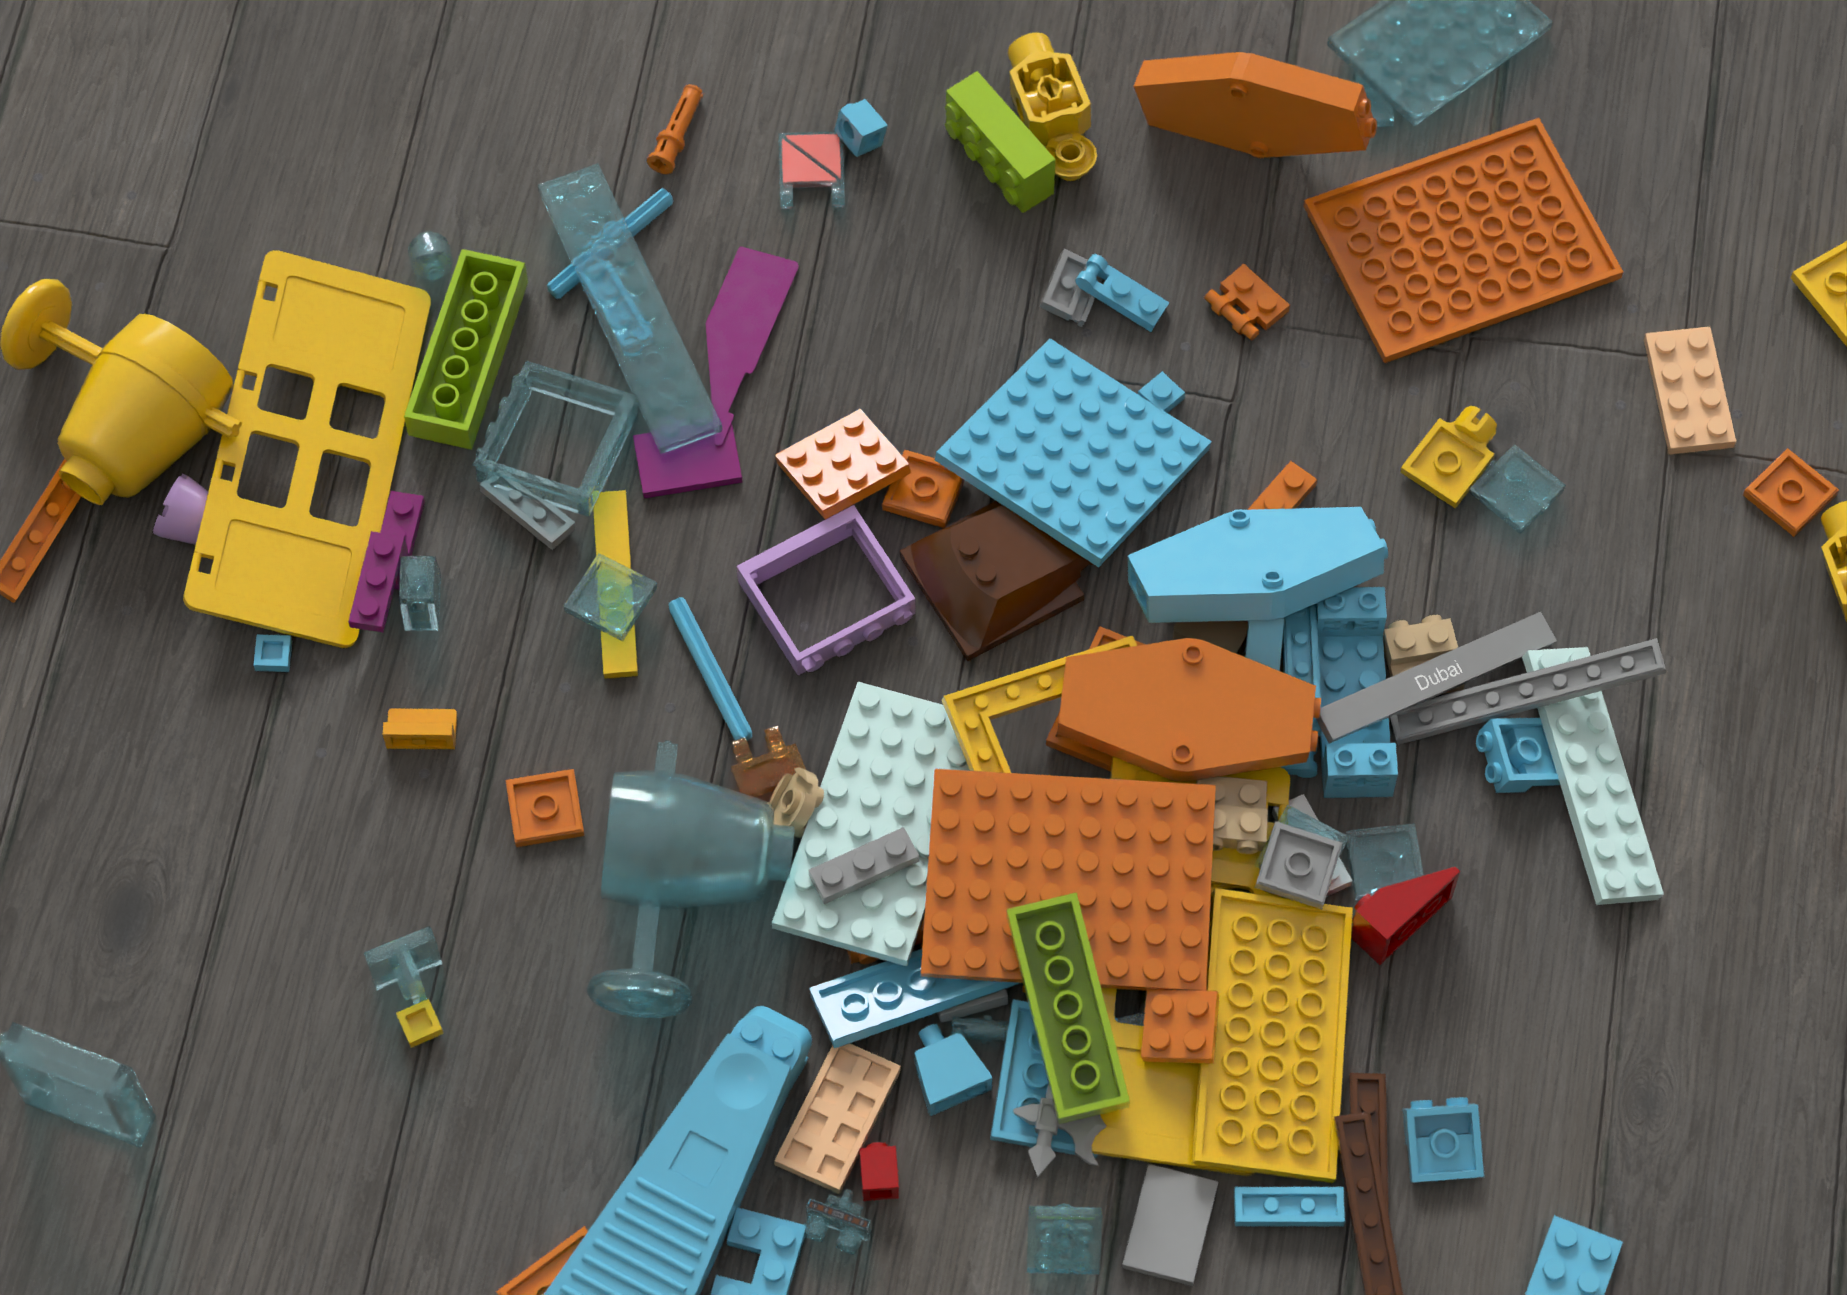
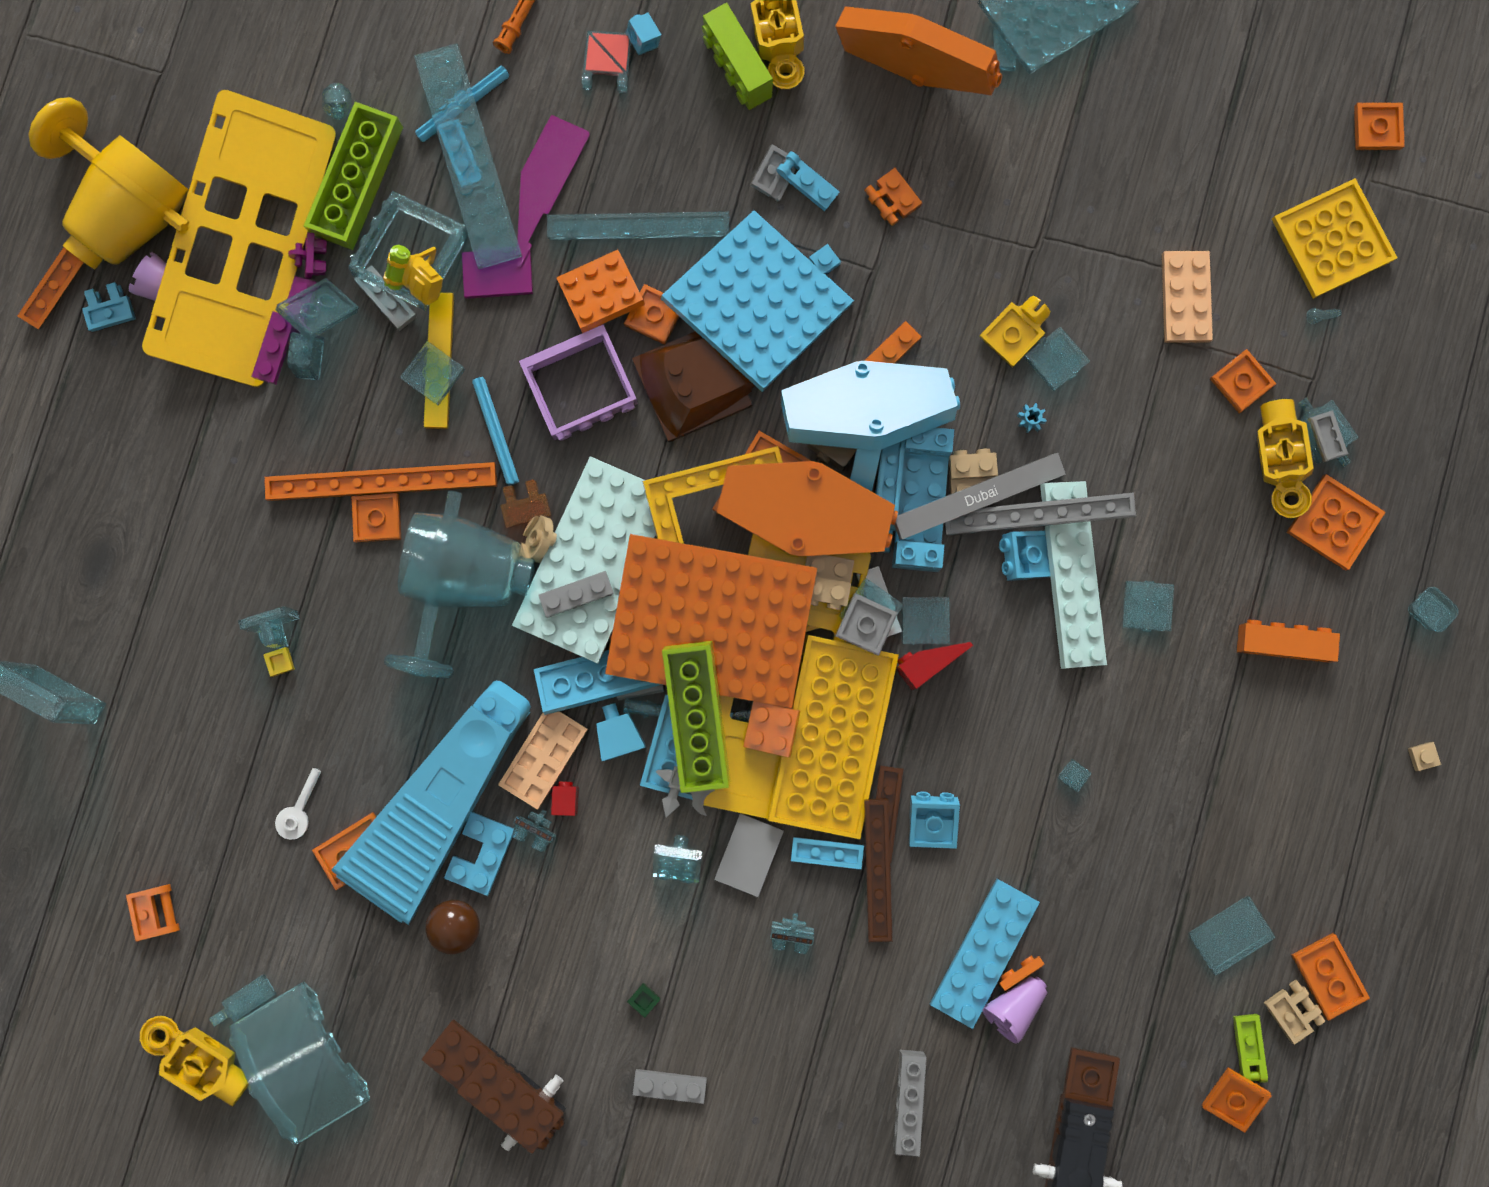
camera: 10 degrees right, 20 degrees up
(118, 567) = (107, 313): none -> medium azure plate
(273, 653) = (205, 387): medium azure plate -> none
(407, 457) = (312, 246): none -> magenta hips
(420, 729) = (299, 451): light orange panel -> none
(433, 525) = (317, 309): none -> clear light blue tile
(461, 1254) = (293, 821): none -> white piece
(544, 755) = (380, 481): none -> orange plate
(576, 456) = (413, 273): none -> yellow piece
(885, 374) = (637, 225): none -> clear light blue plate
(1462, 240) = (1049, 165): orange plate -> none
(1494, 569) = (1033, 411): none -> medium azure gear
(1643, 1056) = (1074, 775): none -> clear light blue plate
(1710, 808) = (1148, 606): none -> clear light blue plate

